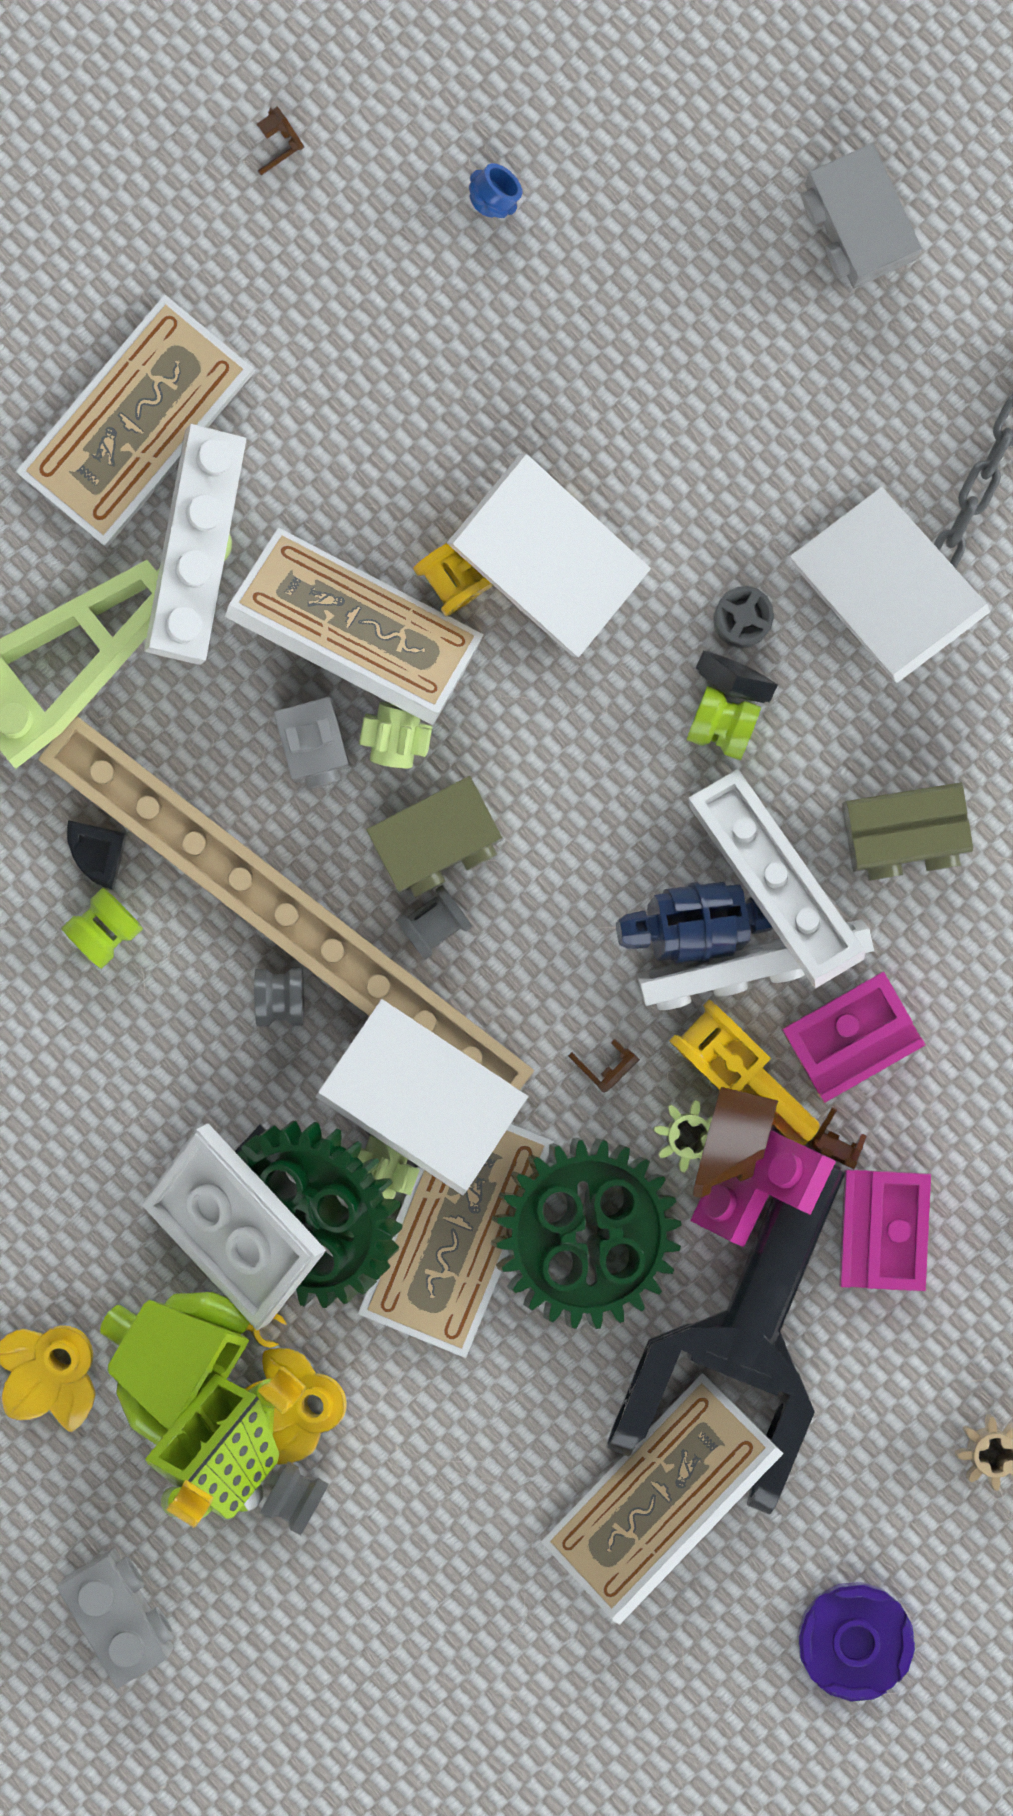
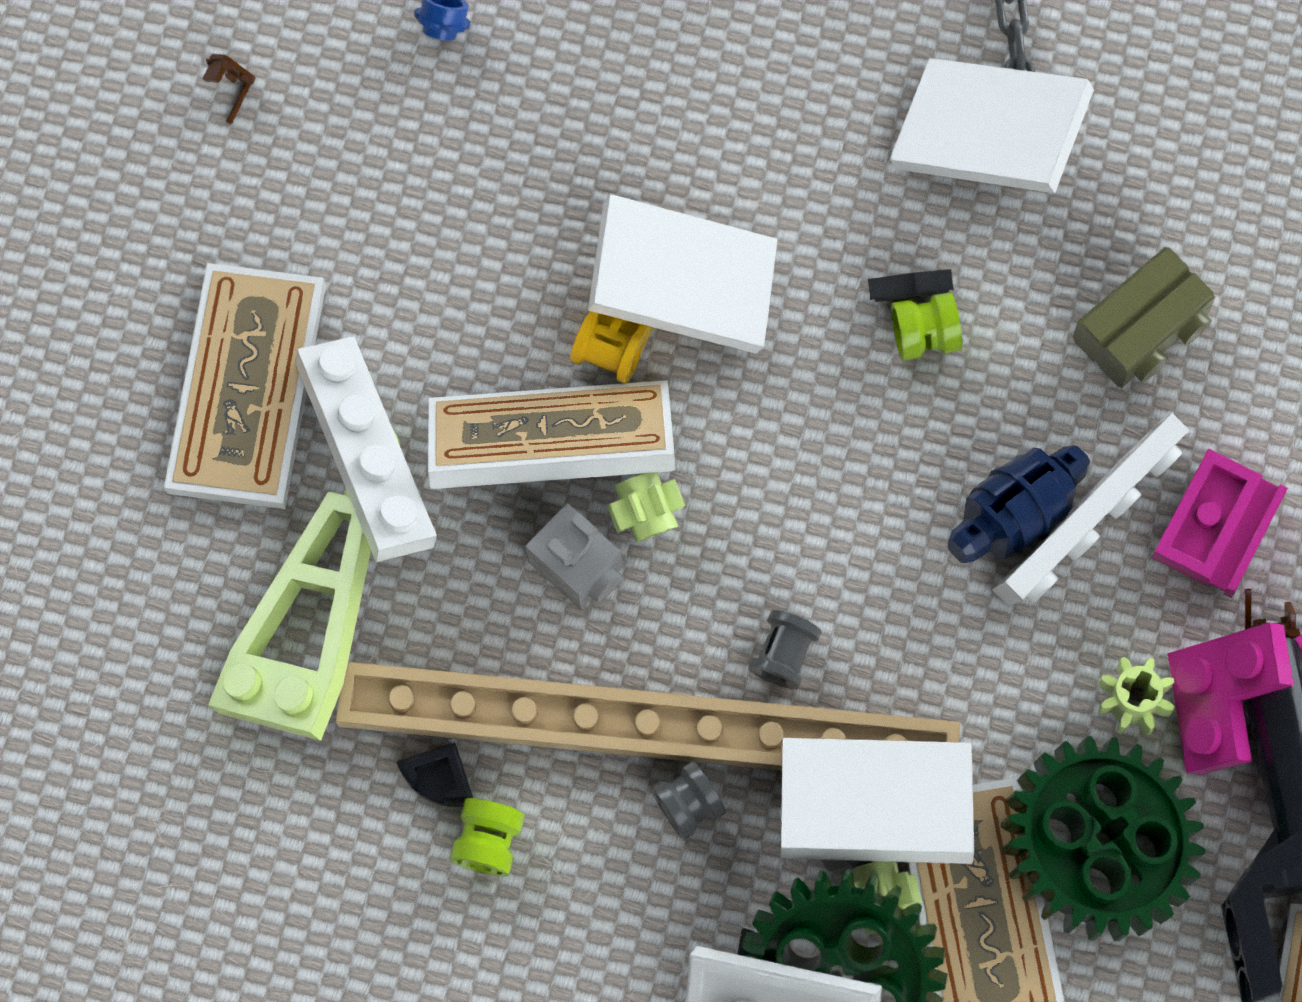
camera: 30 degrees left, 15 degrees down
(435, 836) = (737, 573): olive brick -> none
(610, 1076) = (1030, 687): reddish brown piece -> none
(734, 1139) = (1181, 663): reddish brown slope -> none
(737, 1063) = (1131, 610): yellow connector -> none
(748, 608) = (886, 217): dark grey wheel -> none
(776, 878) = (1064, 420): white plate -> none

